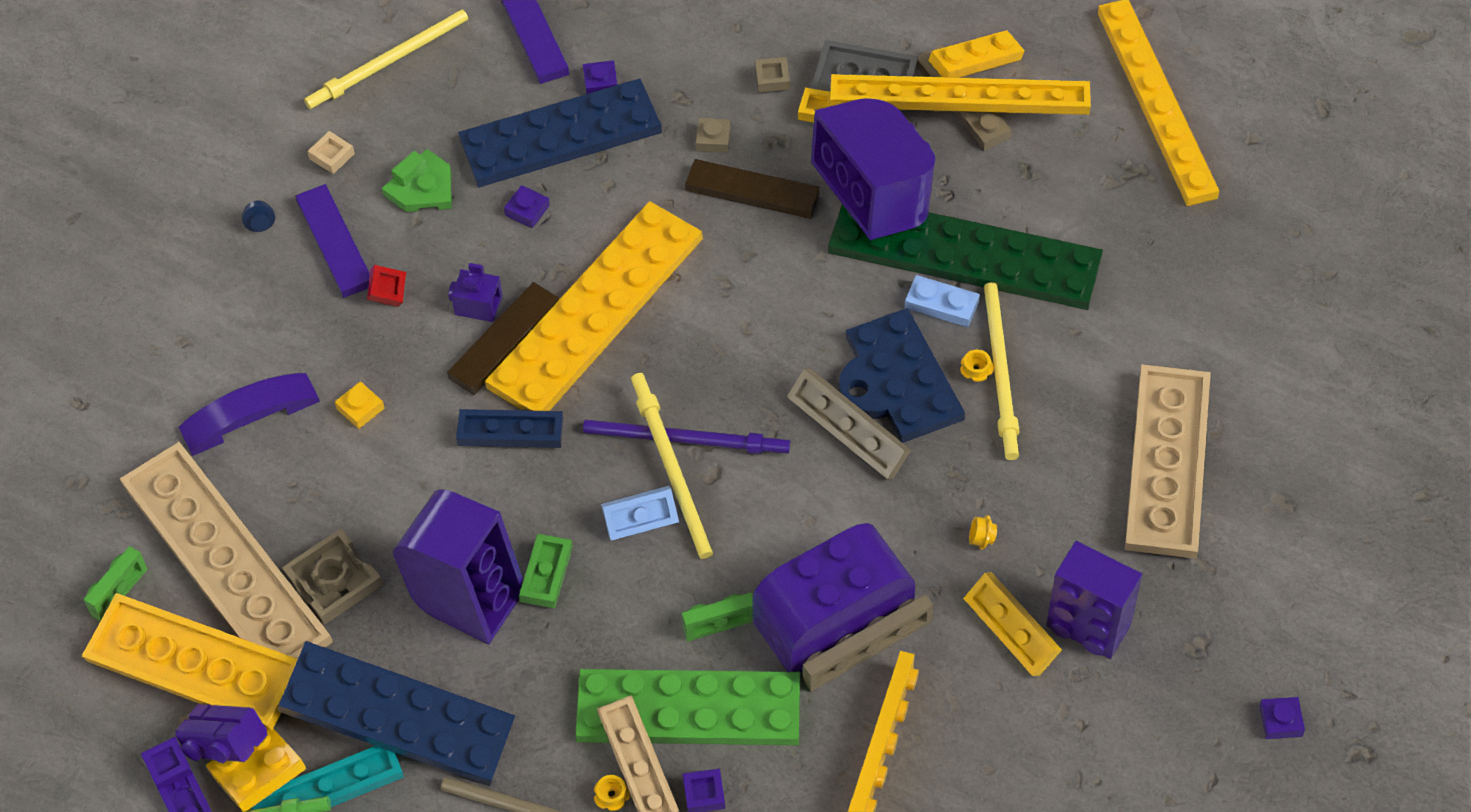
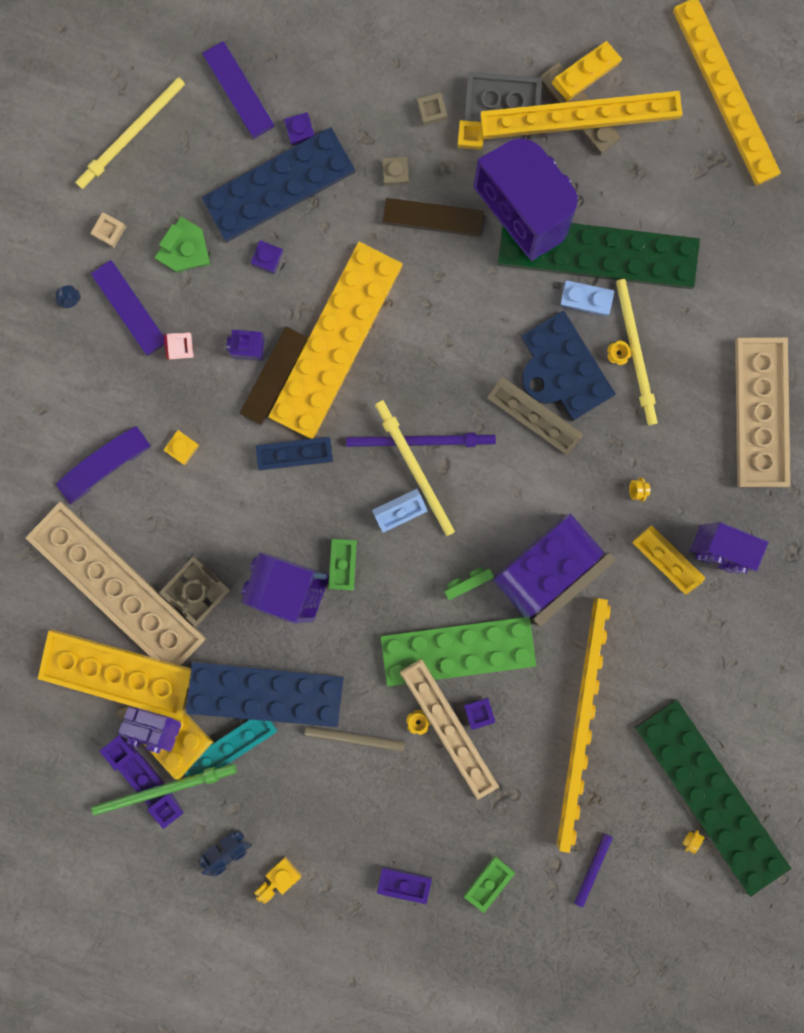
camera: 15 degrees left, 30 degrees up
(119, 579) = (48, 611): bright green plate -> none

